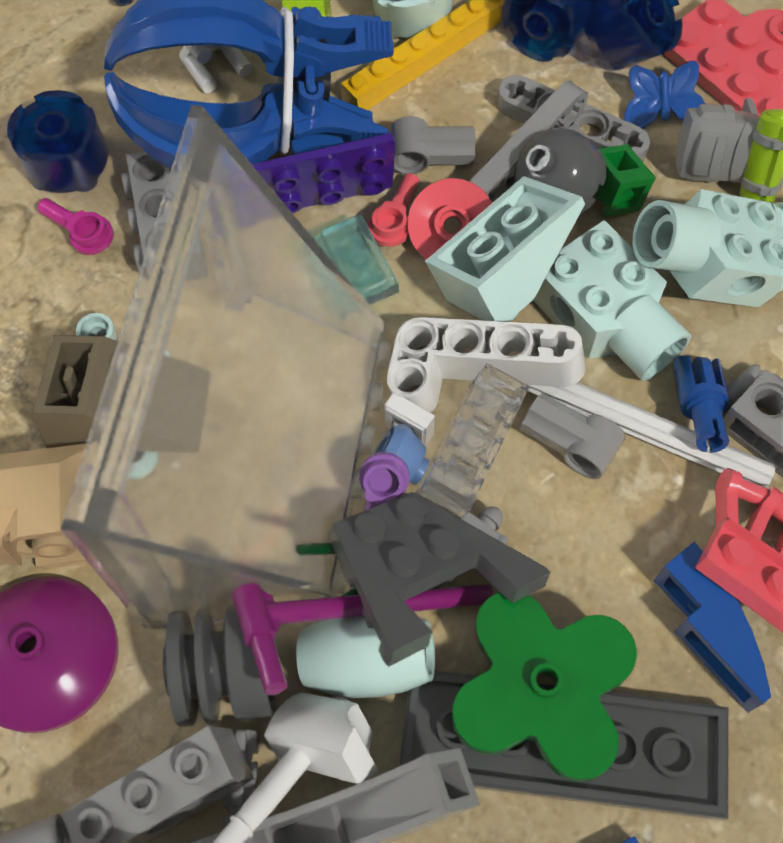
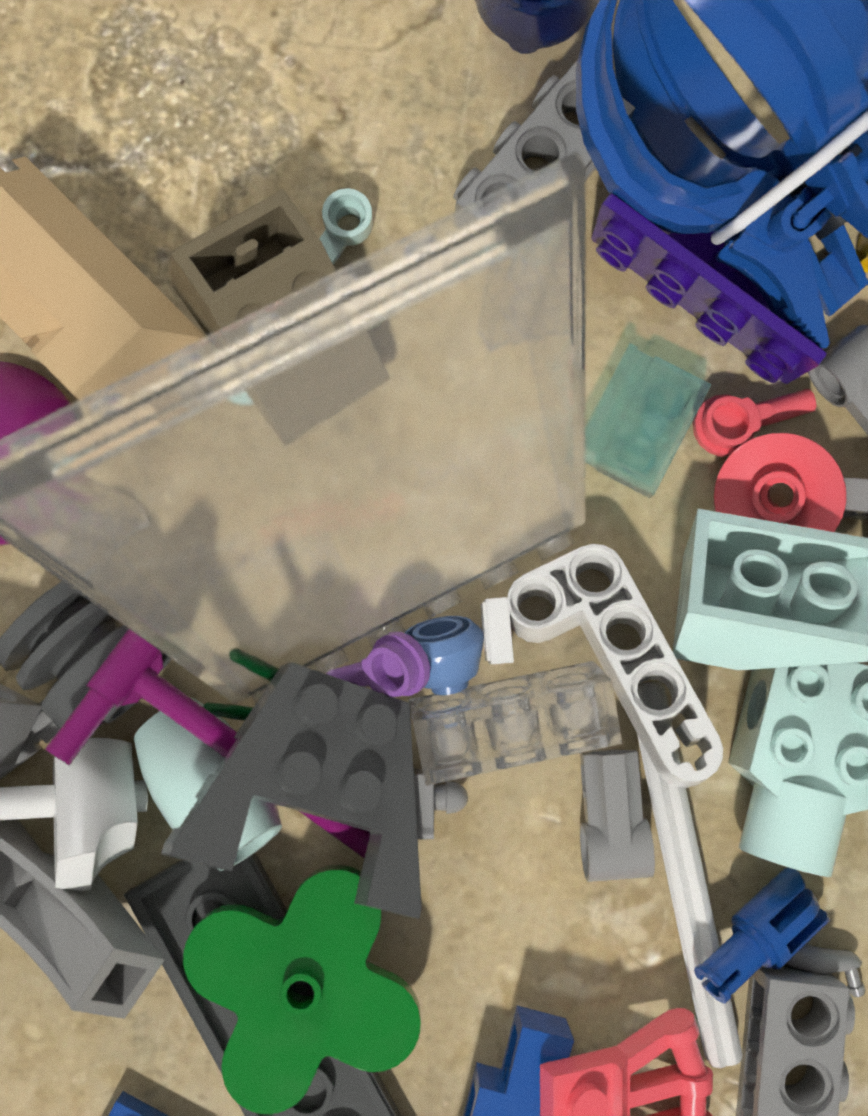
camera: 45 degrees right, 20 degrees up
(87, 230) = (459, 101): dark pink plate -> none

